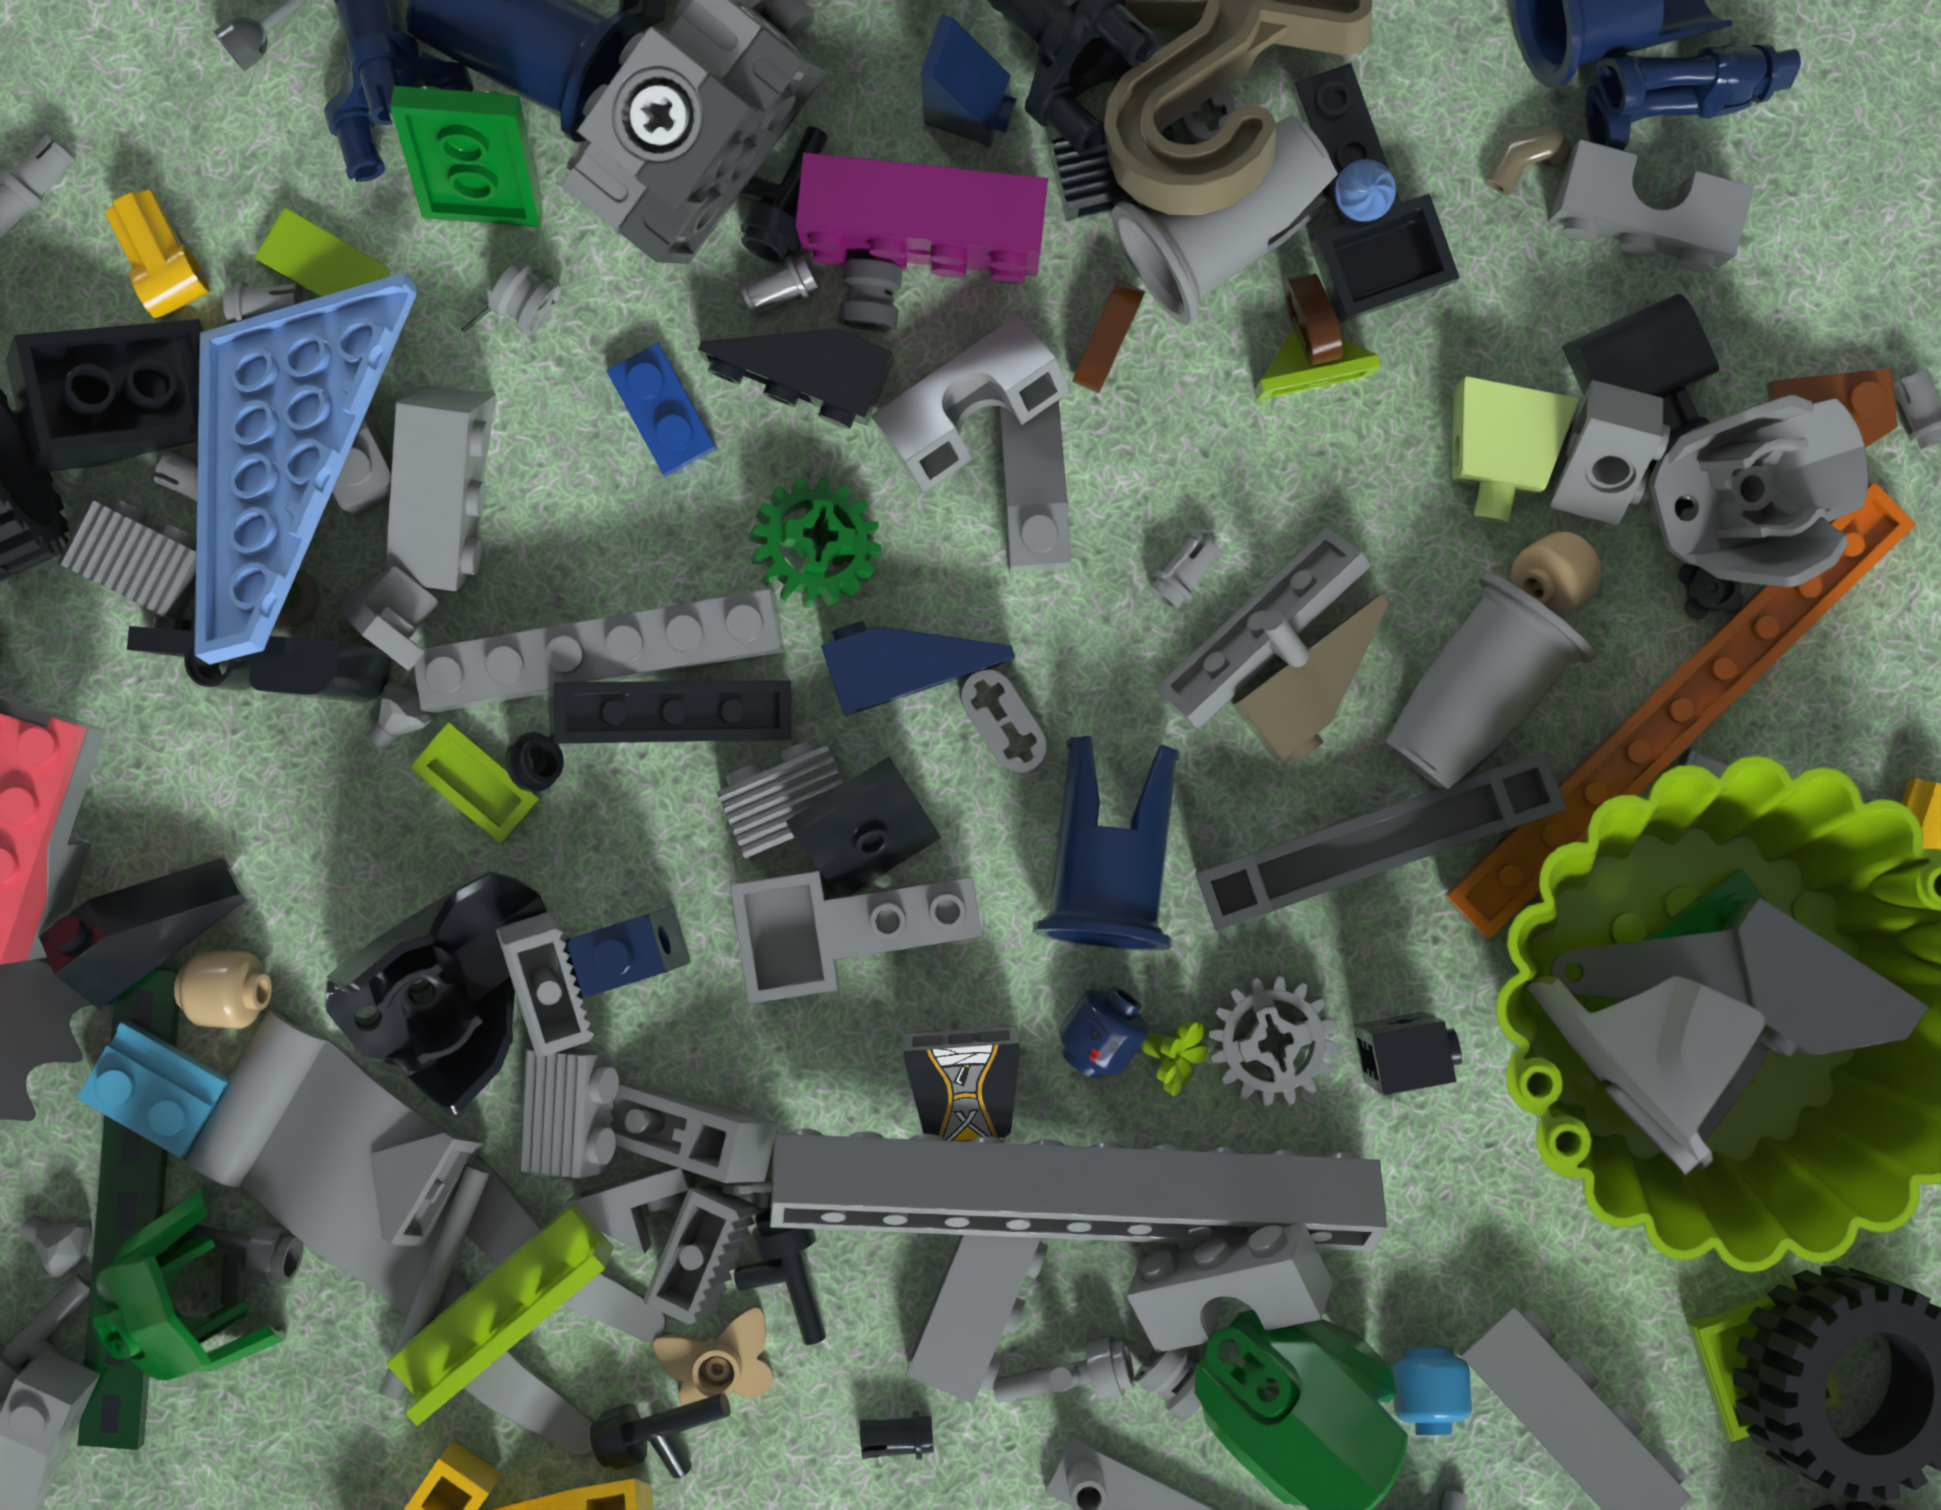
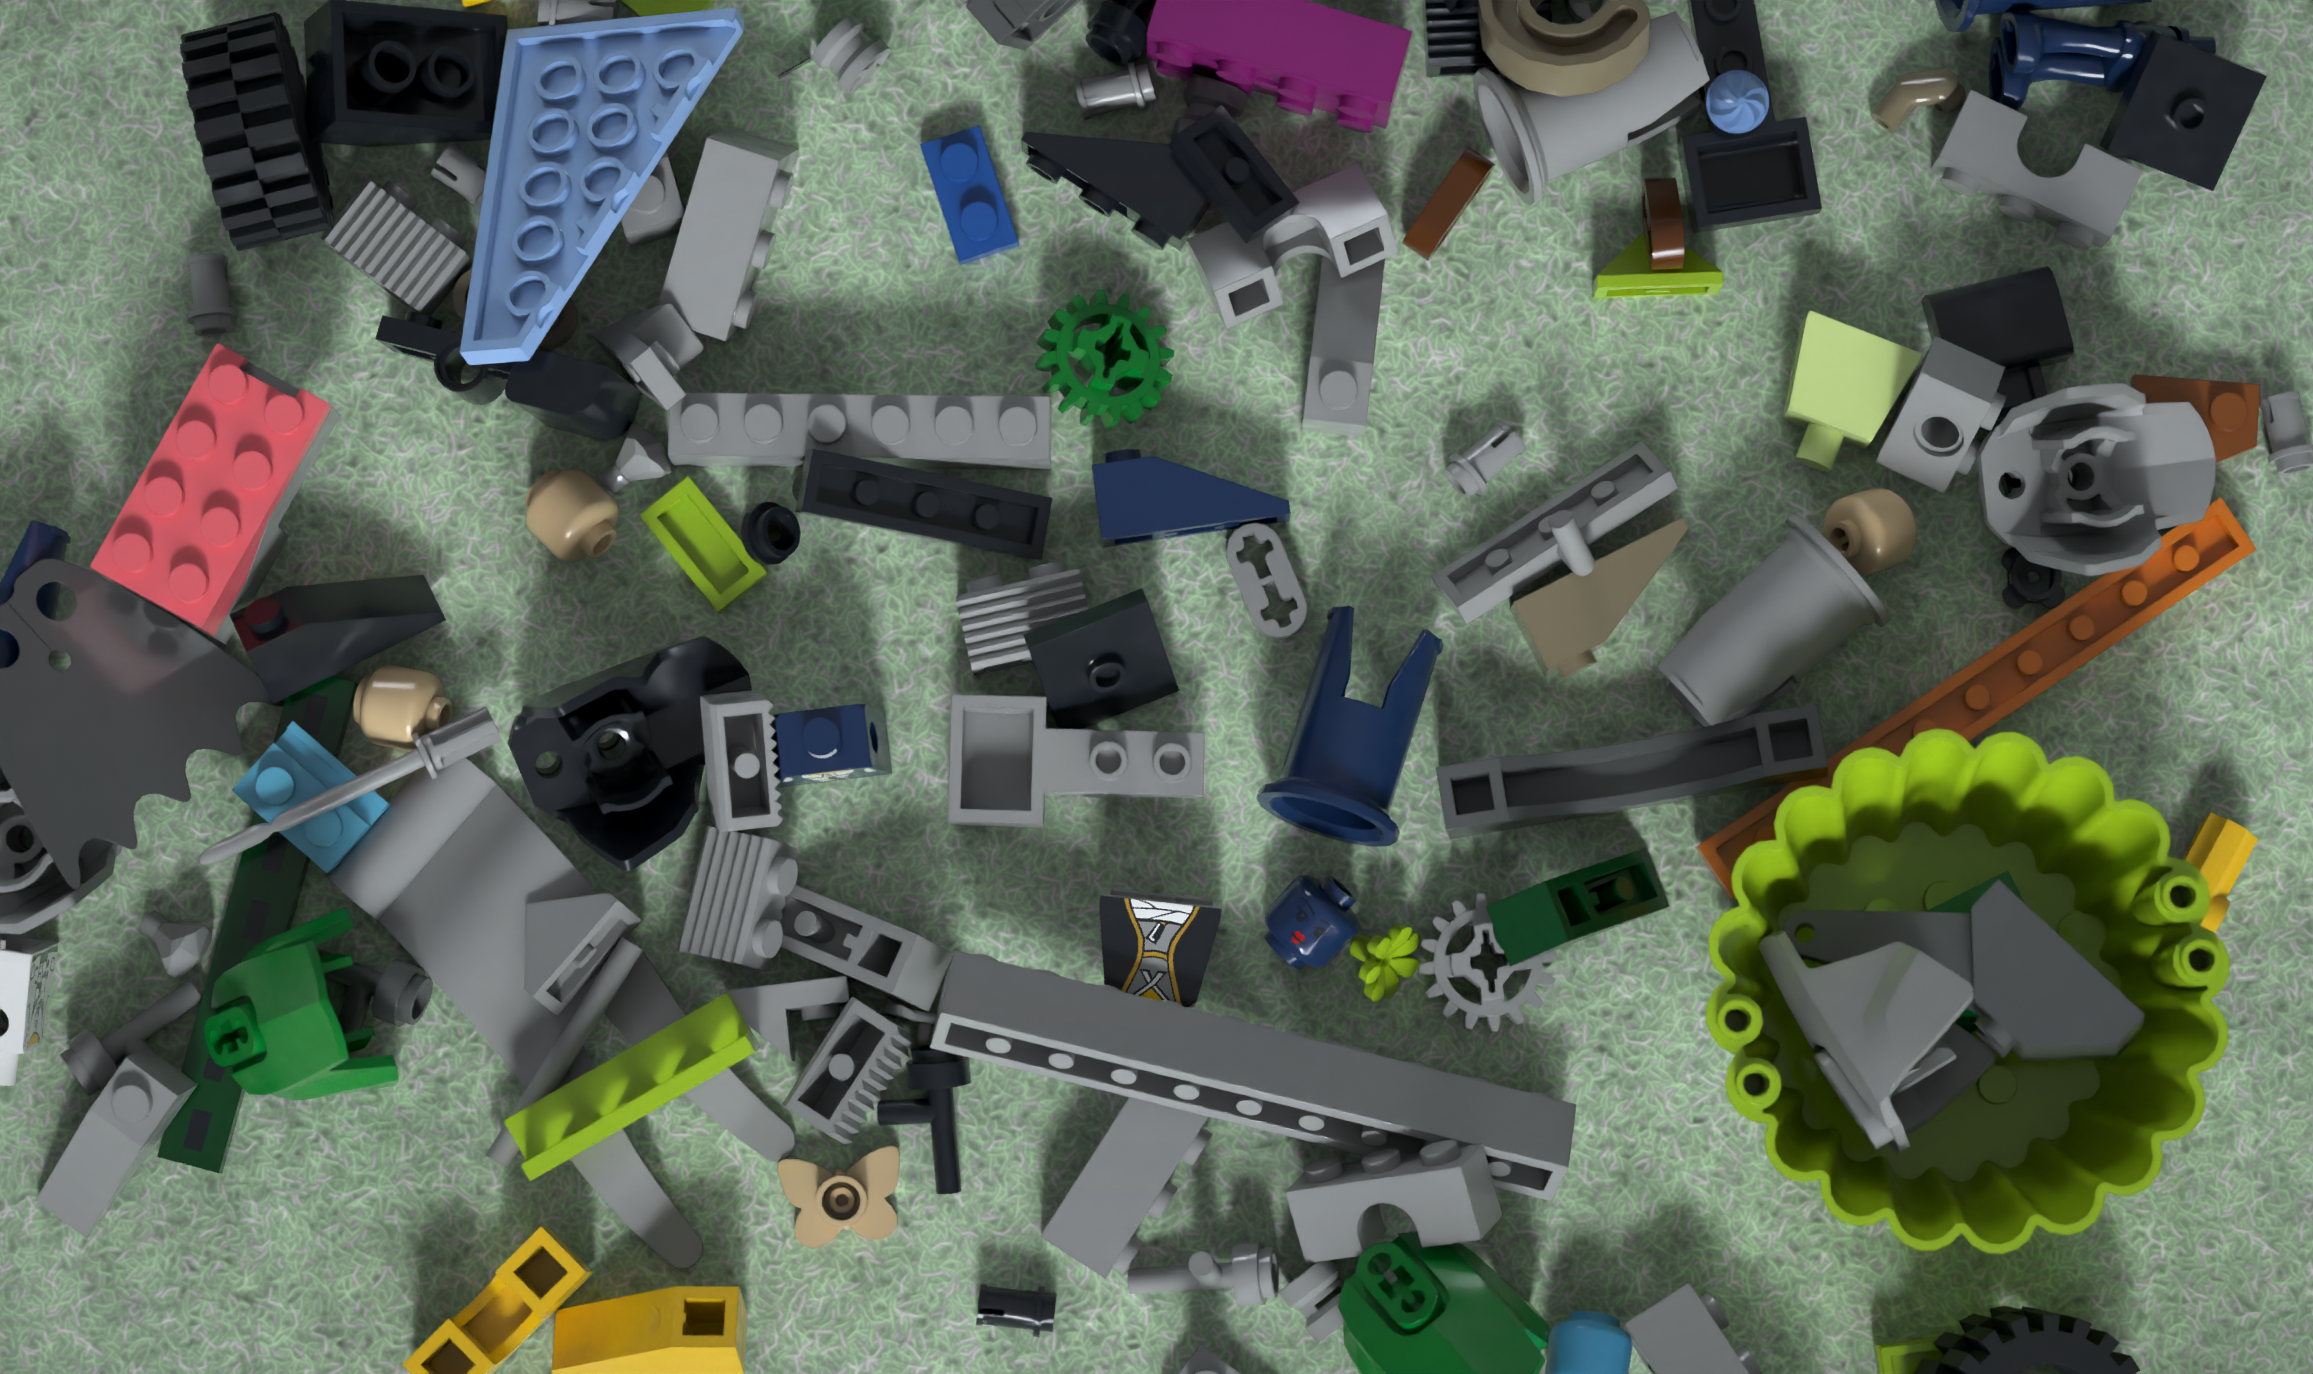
camera: 15 degrees right, 5 degrees down
(252, 1029) = (433, 750): none -> light grey piece
(346, 779) = (571, 514): none -> tan head
(622, 1436) = (728, 1254): black piece -> none
(903, 346) = (1234, 174): none -> black plate
(1348, 979) = (1576, 906): none -> dark green slope
(1407, 1052) = (1624, 994): black brick -> none
(1780, 122) = (2182, 110): none -> black plate

